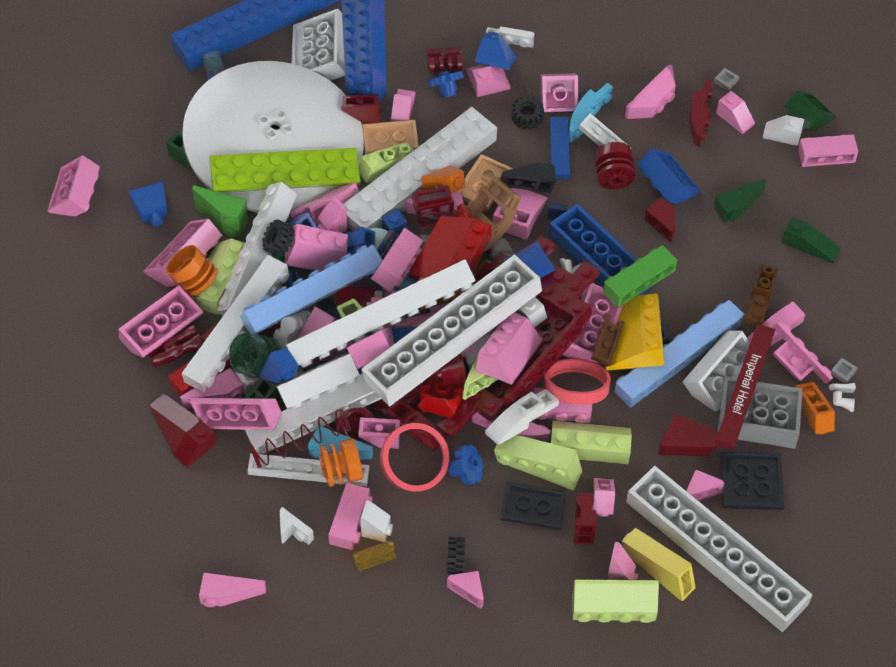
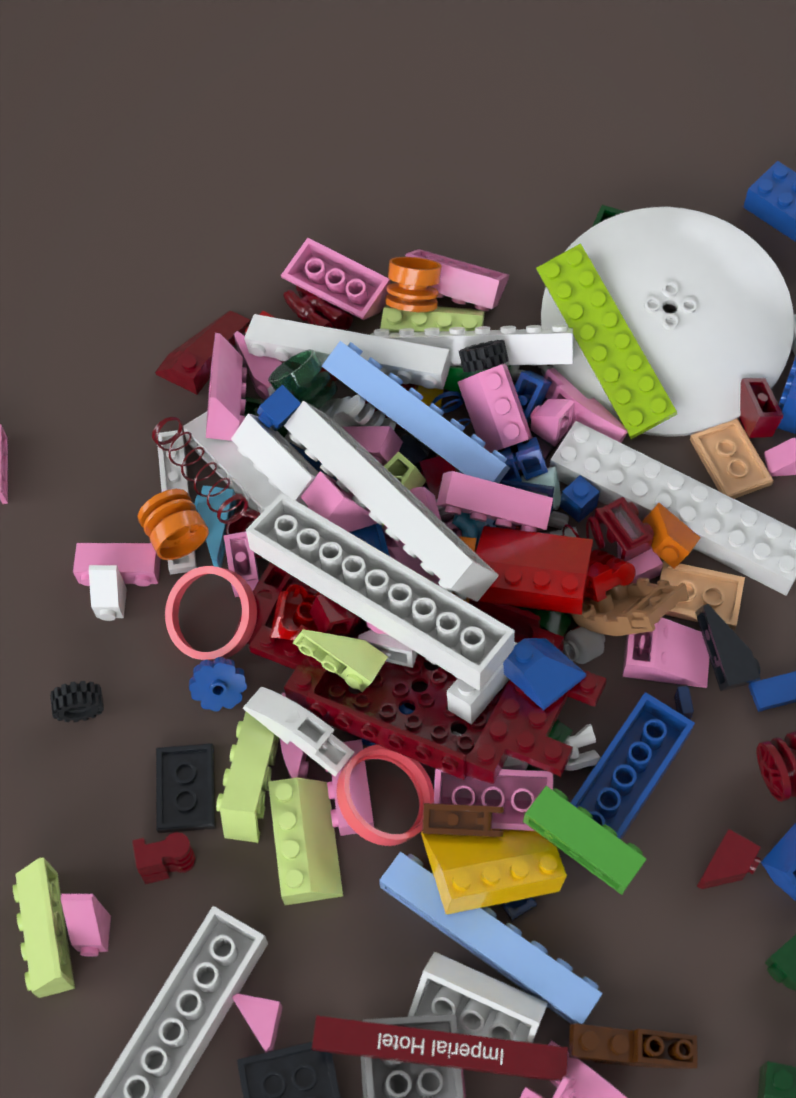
camera: 80 degrees right, 5 degrees up
(74, 187) = (510, 145): bright pink slope -> none
(150, 203) = (515, 224): blue torso -> none
(212, 63) = (759, 224): clear light blue brick -> none
(223, 210) = (520, 302): bright green slope -> none
(292, 525) = (90, 502): white slope -> none
(374, 555) = (69, 607): clear yellow hinge -> none
(378, 162) = (676, 452): yellowish green slope -> none
(467, 586) = (39, 733): bright pink slope -> none
(508, 349) = (386, 678): bright pink slope -> none
(603, 496) = (215, 877): bright pink slope -> none
(660, 563) = (116, 981): light yellow slope -> none
(688, 438) = (340, 977): dark red slope -> none

